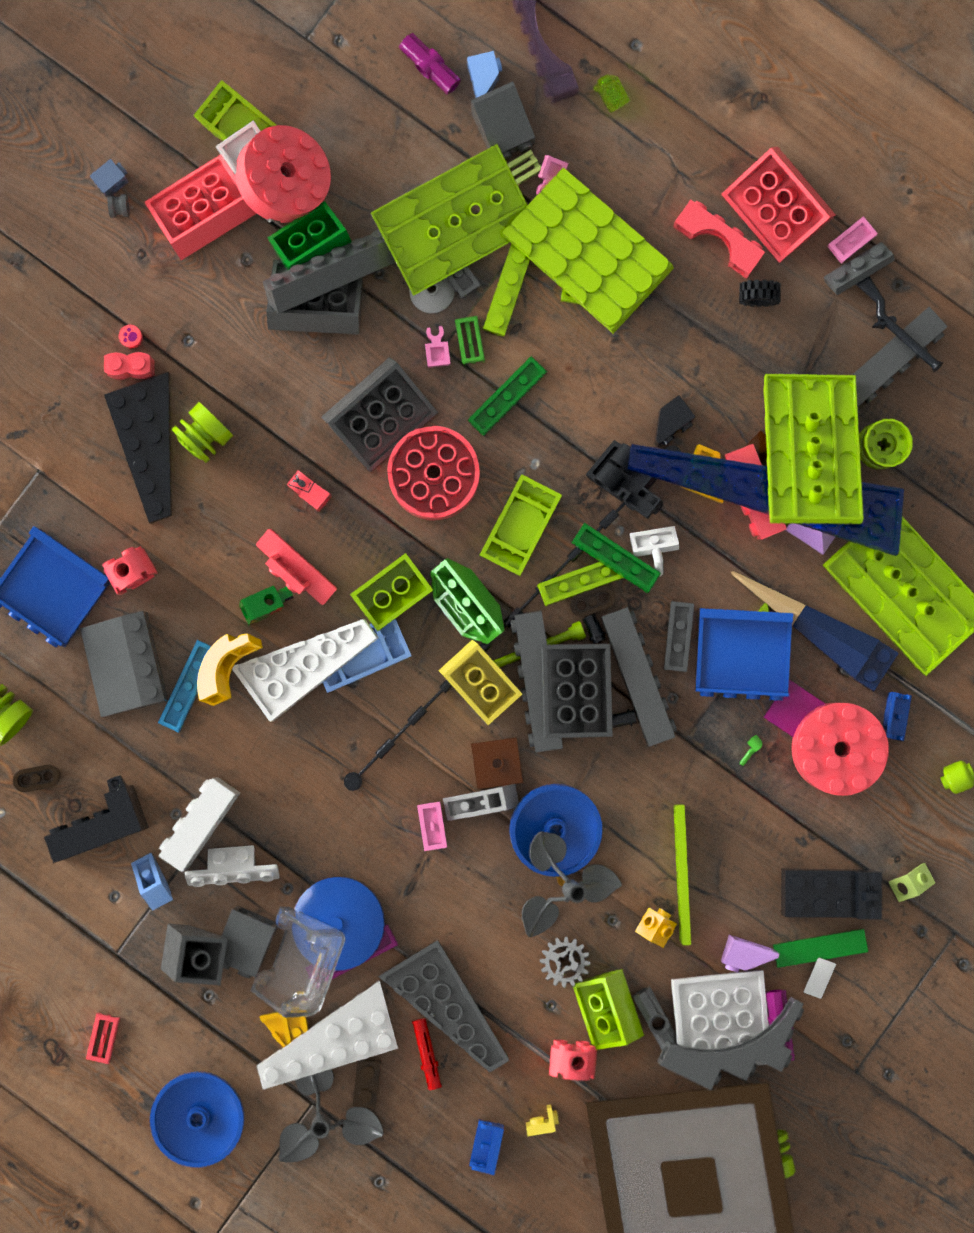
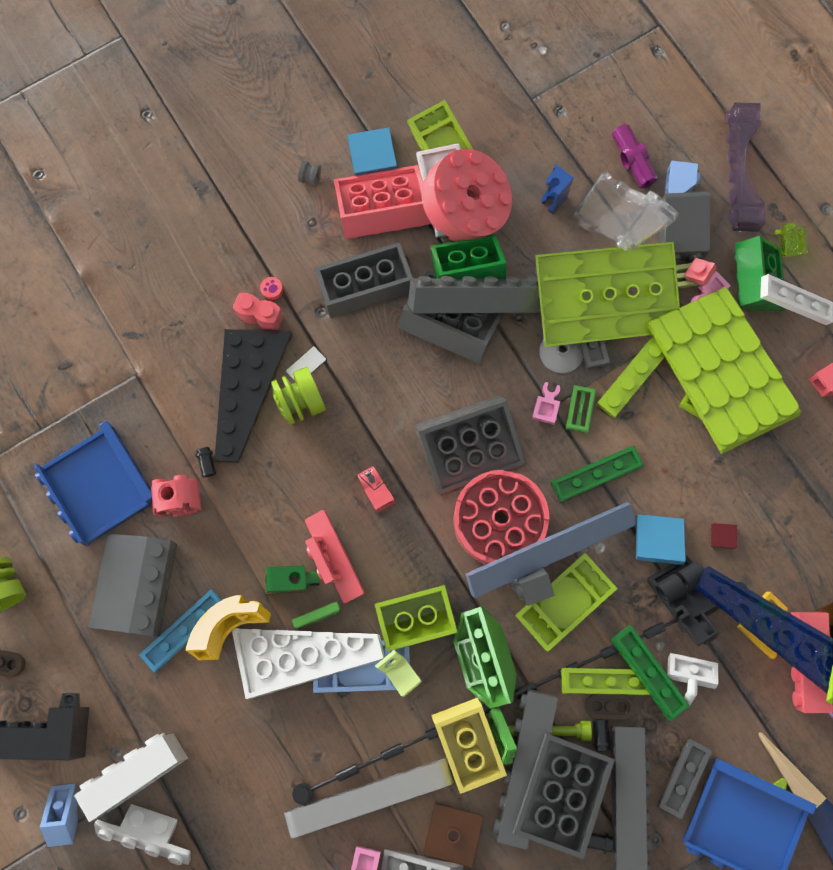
camera: 25 degrees right, 10 degrees down
(110, 177) = (312, 147): sand blue brick -> none
(141, 527) = (206, 462): none -> black pin
(170, 158) = (372, 151): none -> dark azure tile
(197, 393) = (311, 359): none -> white sticker
(217, 294) = (364, 279): none -> dark grey brick
(302, 625) = (317, 615): none -> bright green tile
(366, 127) = (559, 187): none -> blue hinge
(396, 645) = (399, 673): none -> yellowish green bracket
(412, 761) = (368, 798): none -> light grey beam
(438, 133) = (623, 212): none -> clear windscreen
(481, 520) = (533, 587): none -> dark grey brick
(489, 483) = (550, 549): none -> sand blue tile
(505, 663) = (502, 736): none -> bright green tile
(534, 161) = (700, 271): none -> coral plate
(585, 435) = (660, 539): none -> dark azure tile
(593, 141) = (754, 260): none -> green slope
(633, 156) = (796, 299): none -> white plate
(642, 408) = (723, 536): none -> dark red tile
(671, 419) = (751, 556): black slope -> none

